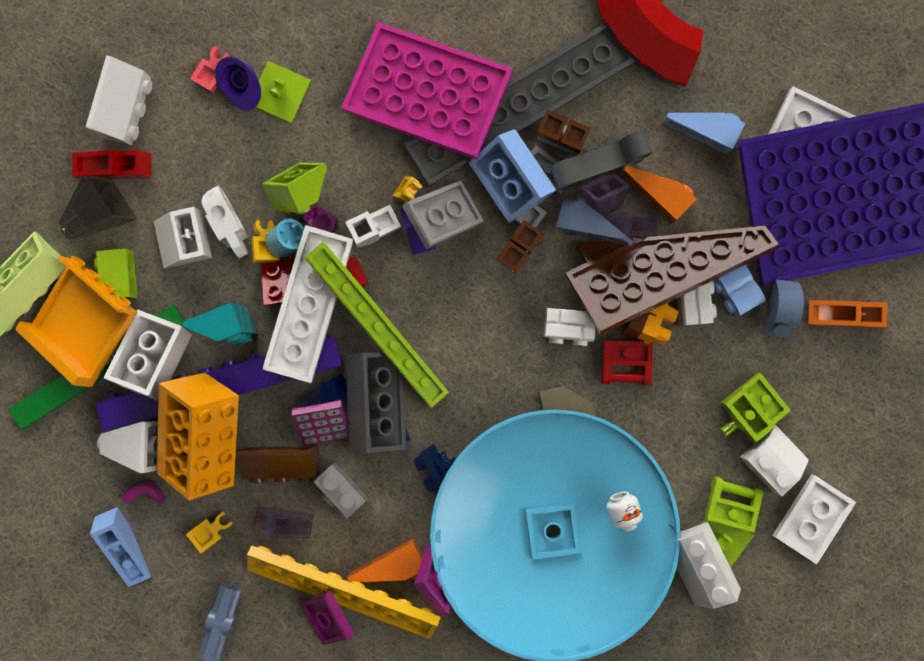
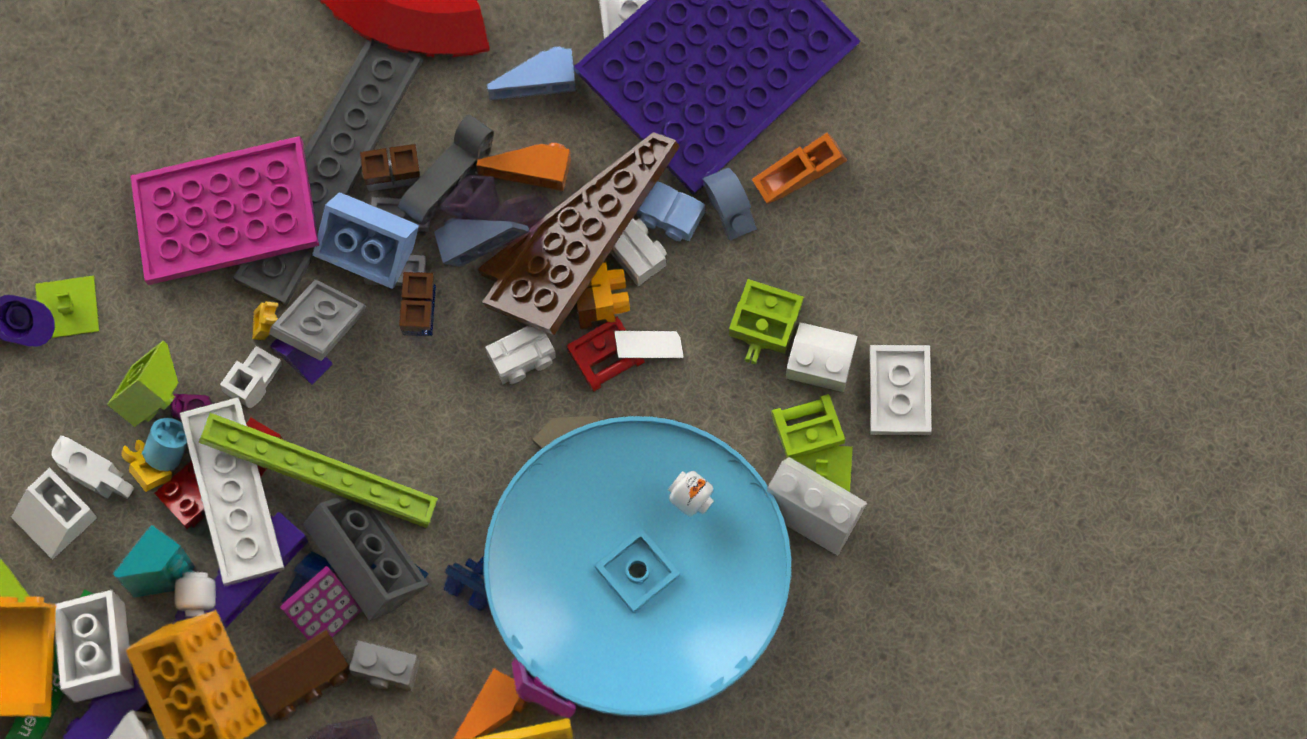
camera: 30 degrees left, 15 degrees down
(239, 363) = (194, 593): none -> white head
(661, 375) = (648, 344): none -> white sticker

